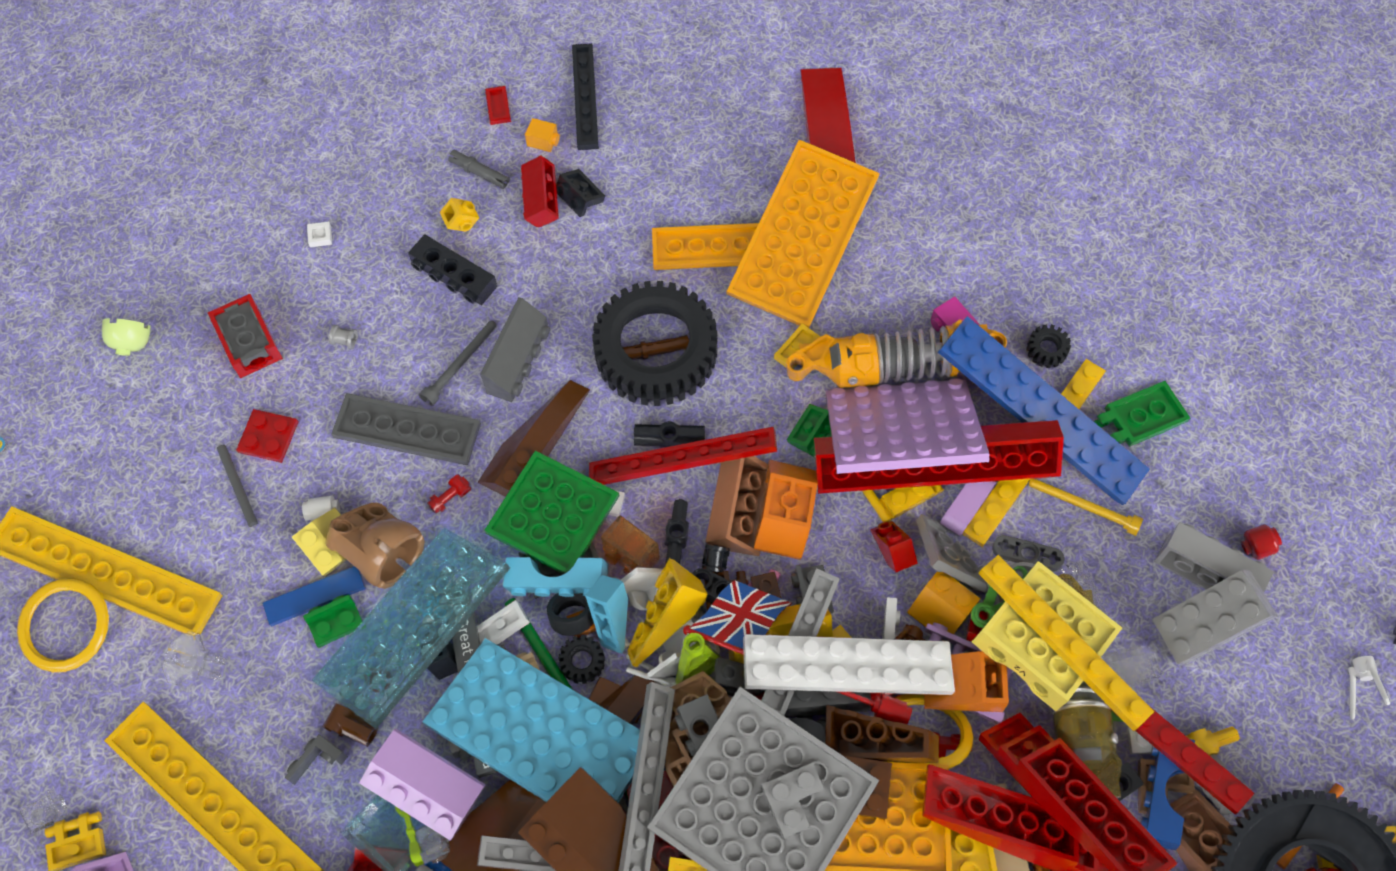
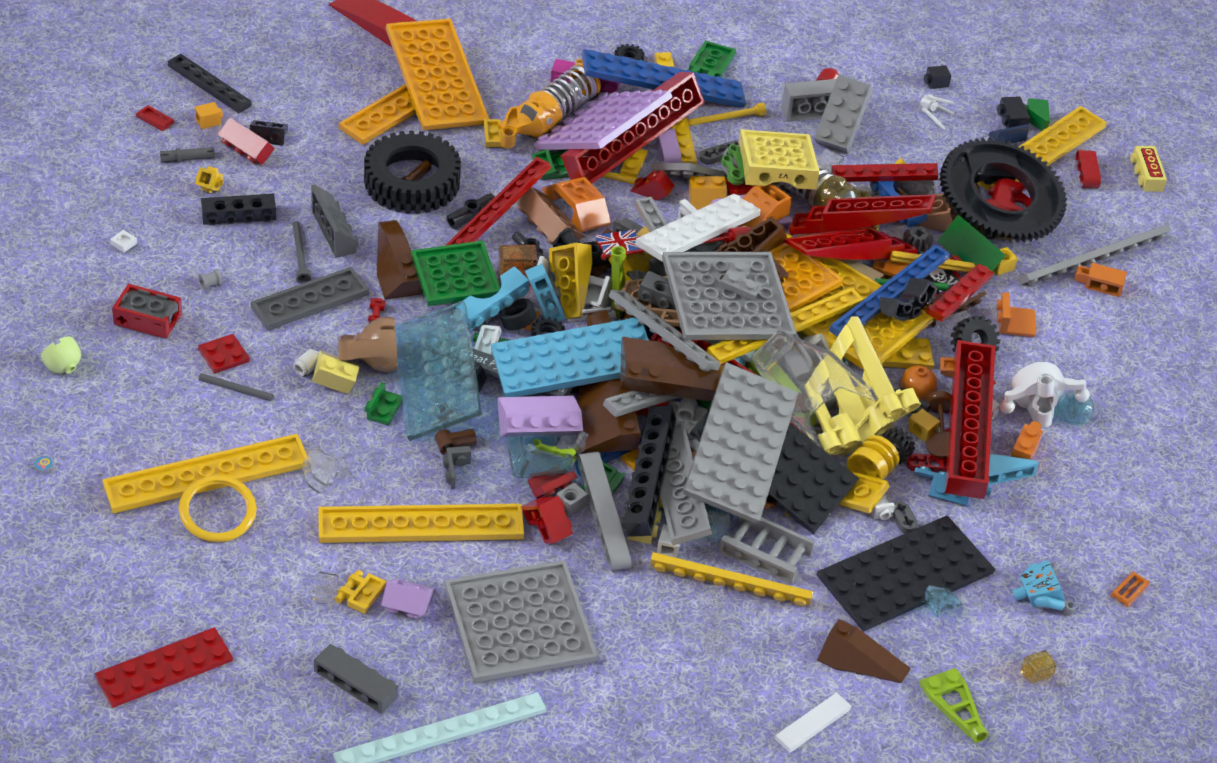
camera: 50 degrees left, 20 degrees down
(313, 595) = (354, 404): blue tile -> none
(1066, 643) = (791, 149): yellow plate -> none

